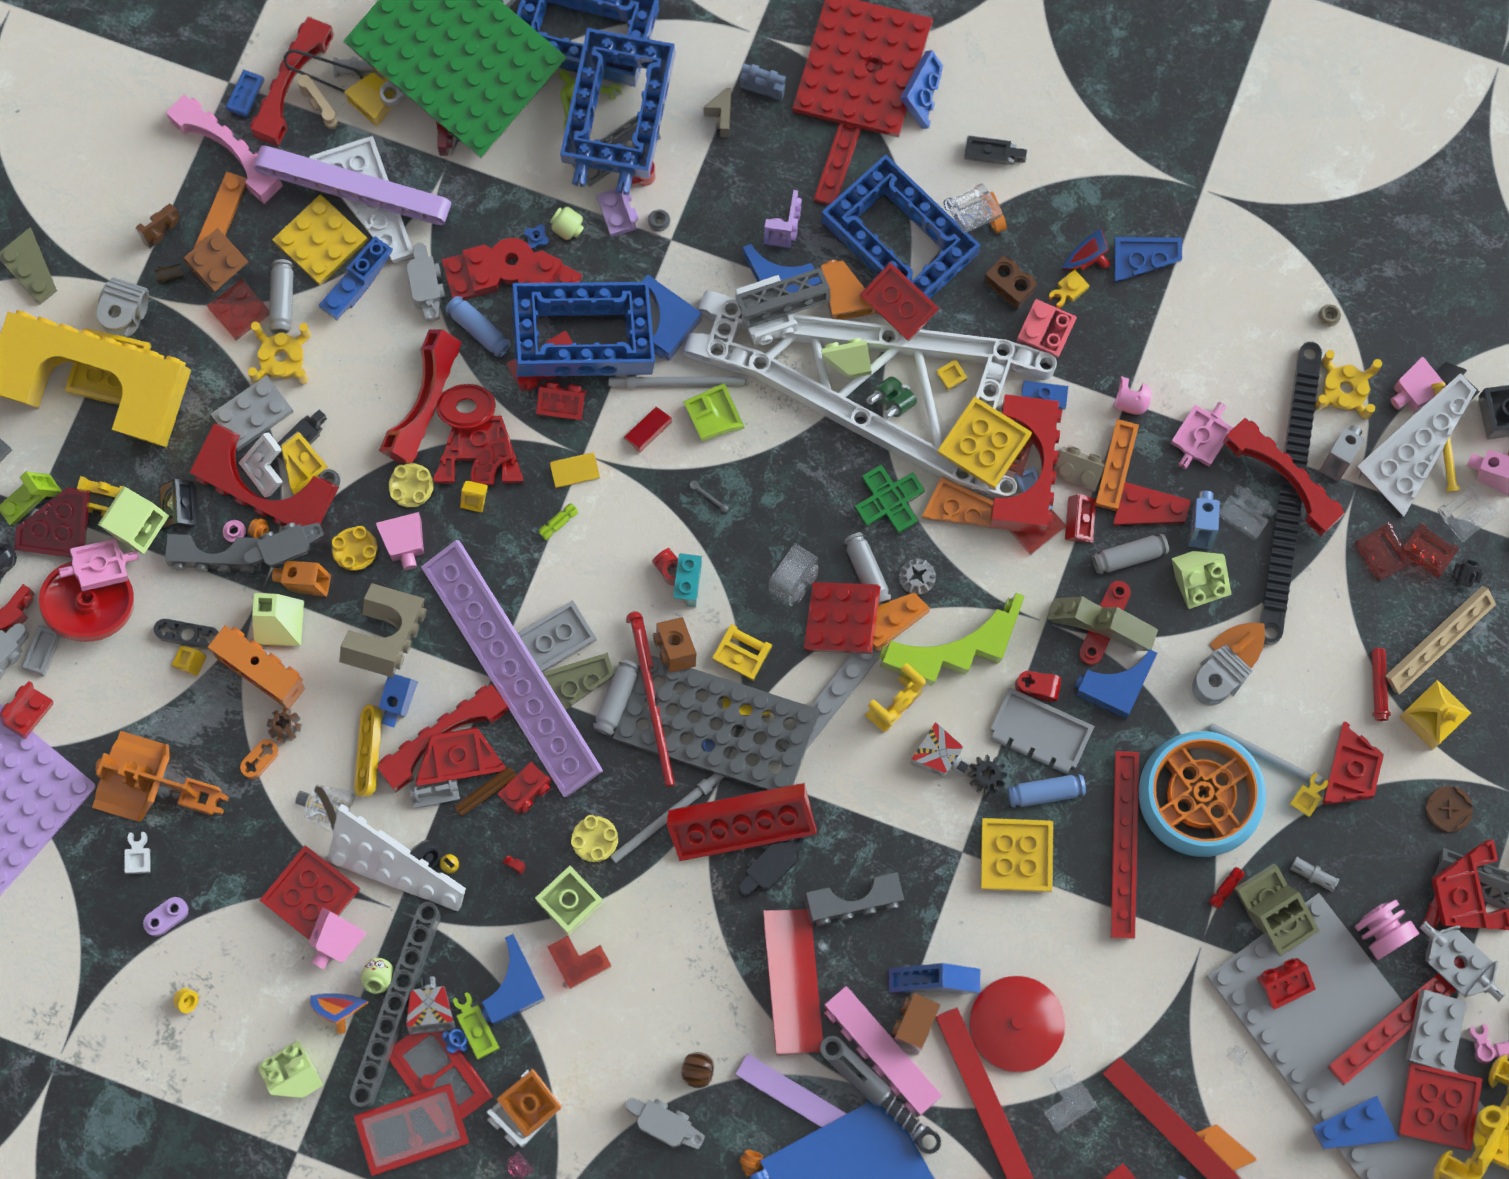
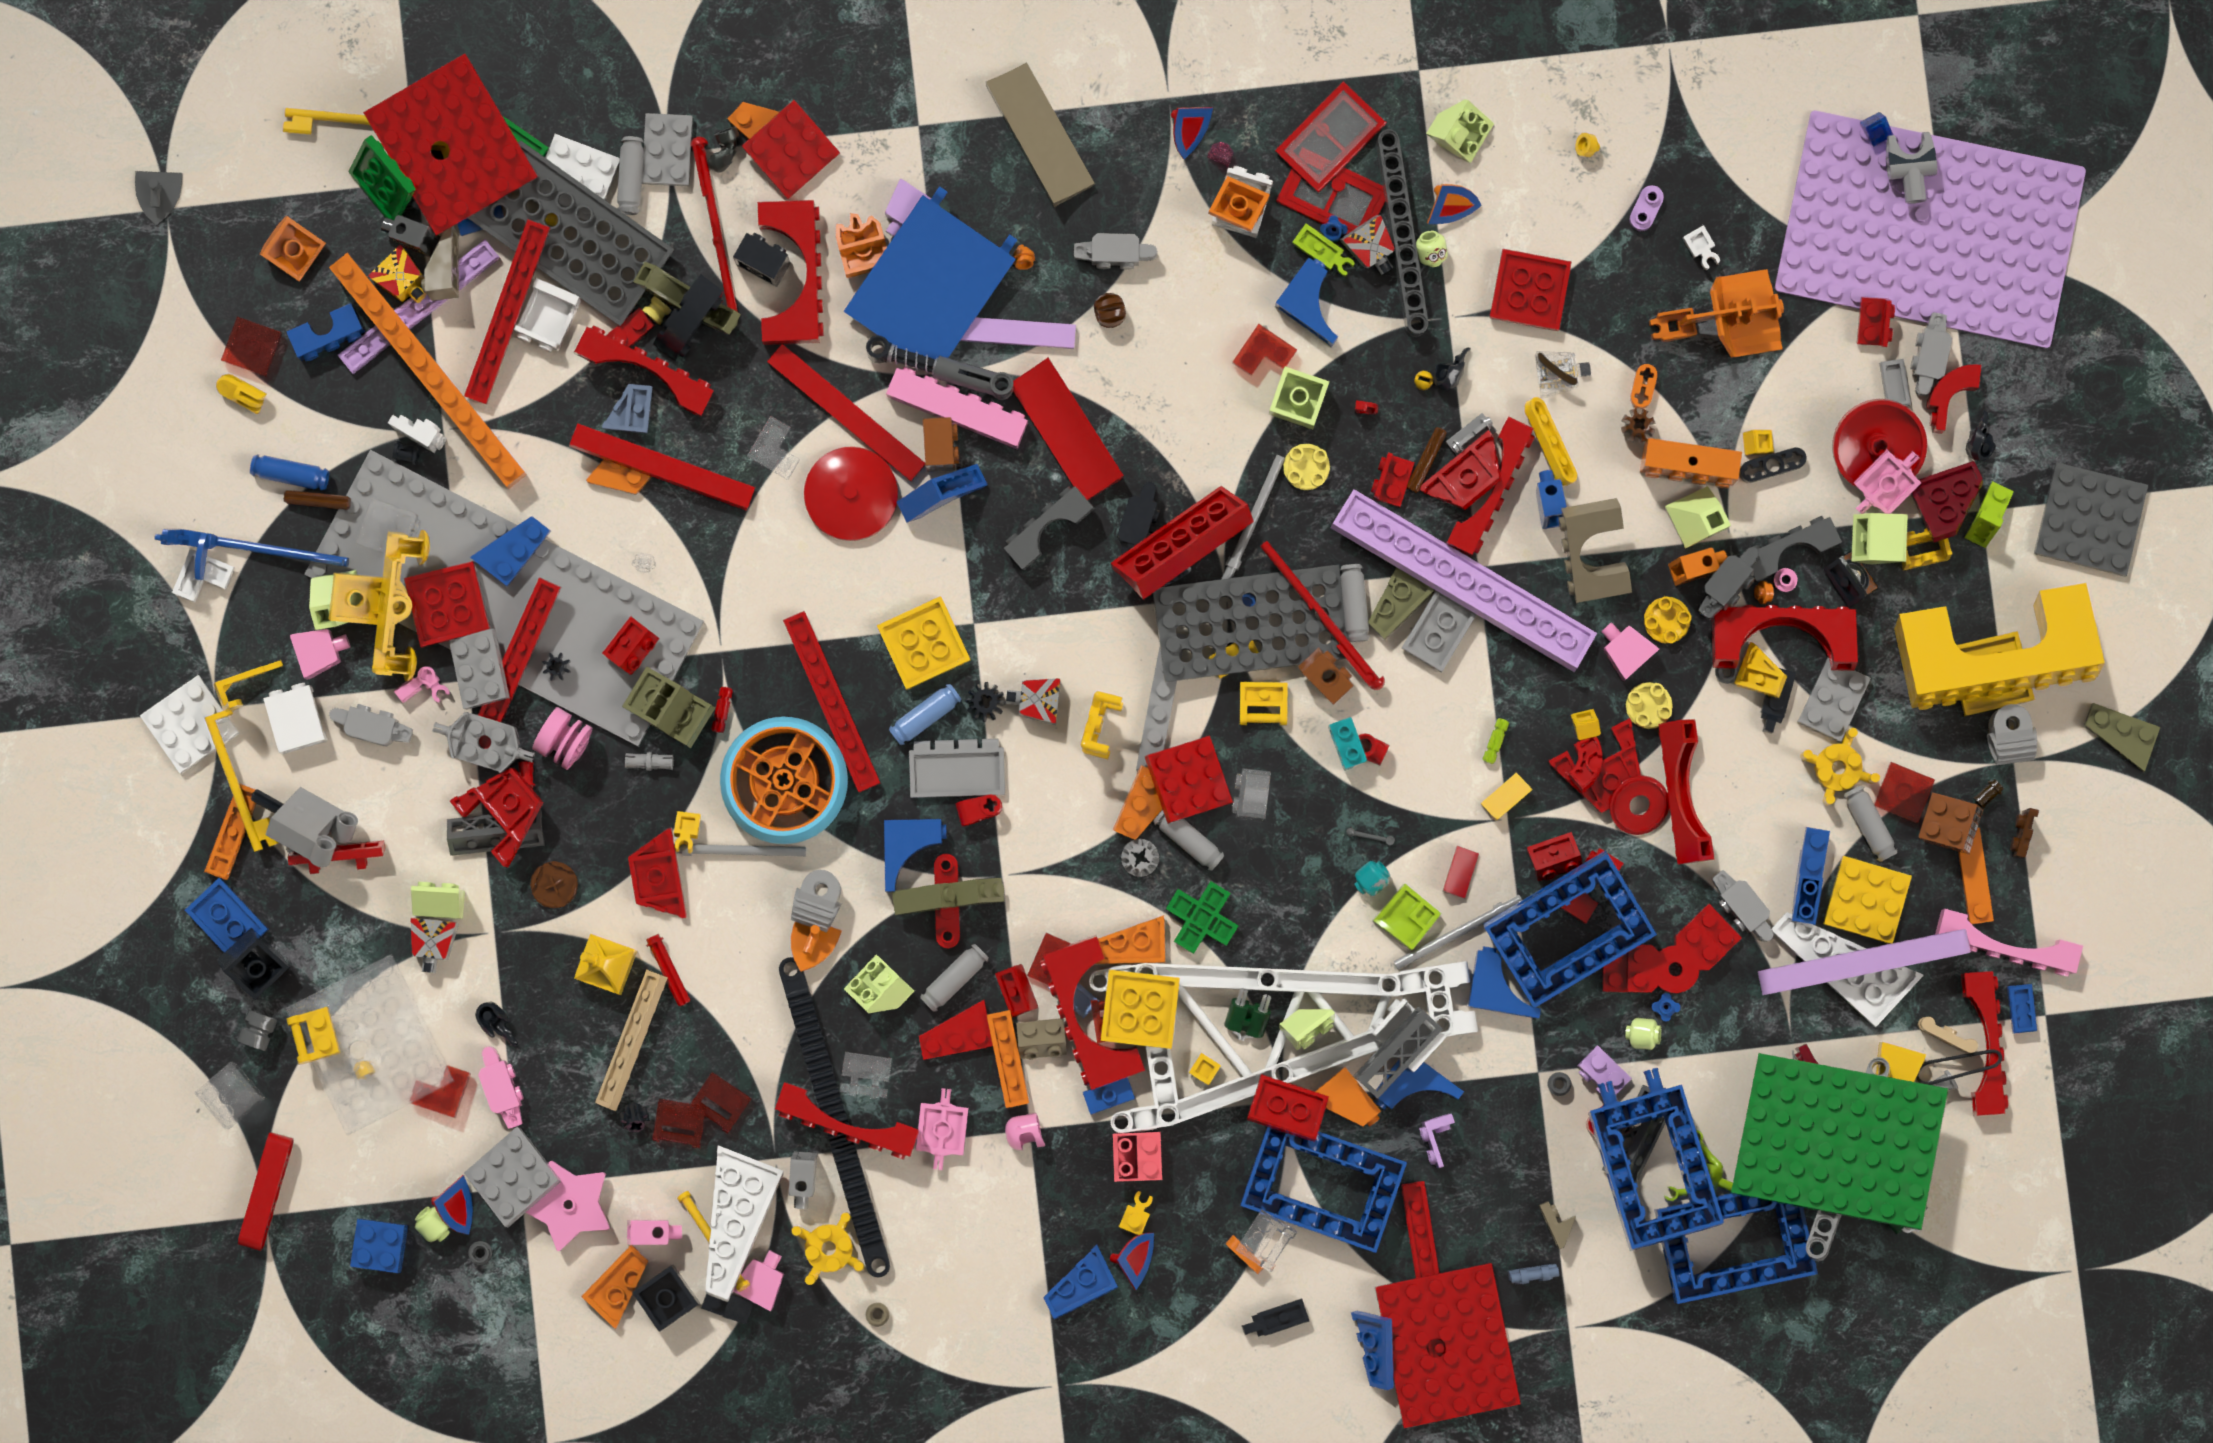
camera: 155 degrees right, 10 degrees up
(257, 464) = (1799, 652): white plate -> none
(333, 938) = (1486, 261): bright pink torso -> none
(383, 859) = (1475, 350): white wing -> none
(478, 326) = (1671, 888): medium blue axle -> none
(726, 458) = (1372, 878): none -> teal head
(987, 642) = (1045, 826): lime arch -> none
(1006, 285) = (1196, 1184): reddish brown brick -> none
(1204, 521) = (898, 1035): medium blue torso -> none
(1359, 1002) = (549, 665): none -> black gear
(1473, 518) = (653, 1177): clear plate -> none

